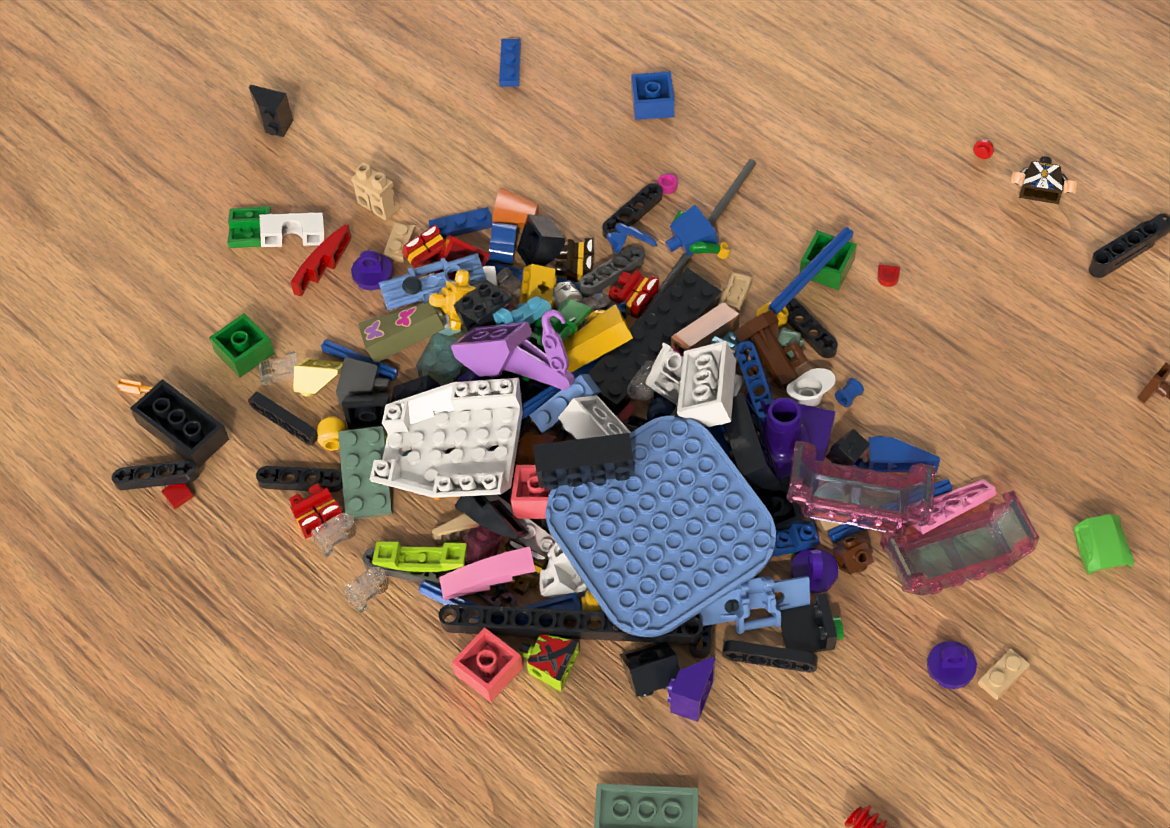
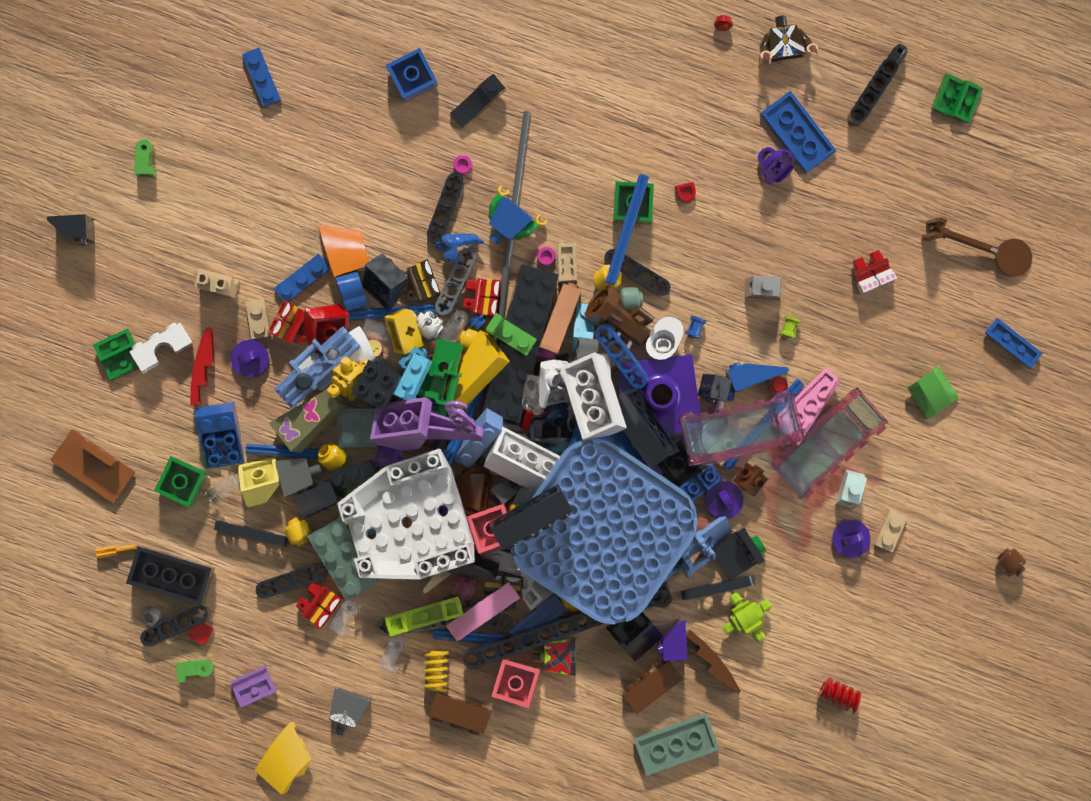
camera: 30 degrees left, 30 degrees up
(142, 458) = (155, 613): none -> light grey piece
(148, 522) = (194, 667): none -> bright green leg
(166, 308) = (92, 466): none -> dark orange bracket
(188, 647) = (284, 760): none -> yellow slope
(199, 564) = (253, 686): none -> medium lavender plate
(286, 625) = (347, 709): none -> dark grey torso
(304, 322) = (219, 435): none -> blue slope
(365, 86) = (143, 159): none -> bright green leg
(402, 619) = (436, 670): none -> yellow piece
(403, 372) = (332, 456): none -> yellow head
(408, 677) = (459, 713): none -> reddish brown brick
(639, 312) = (510, 334): none -> bright green bracket
(645, 733) = (652, 685): none -> reddish brown brick
(708, 137) = (478, 101): none -> black slope
(717, 280) = (546, 256): none -> dark pink tile
(731, 740) = (716, 666): none -> reddish brown slope
(791, 698) = (747, 617): none -> lime piece
(942, 377) = (763, 287): none -> light grey torso
(956, 426) = (790, 327): none -> lime bush
(973, 602) = (851, 489): none -> light aqua torso
(996, 275) = (777, 165): none -> dark purple tile
(1030, 262) = (798, 132): none -> blue tile
(1070, 407) = (873, 275): none -> hips
(1148, 760) = (1011, 562): none -> reddish brown head

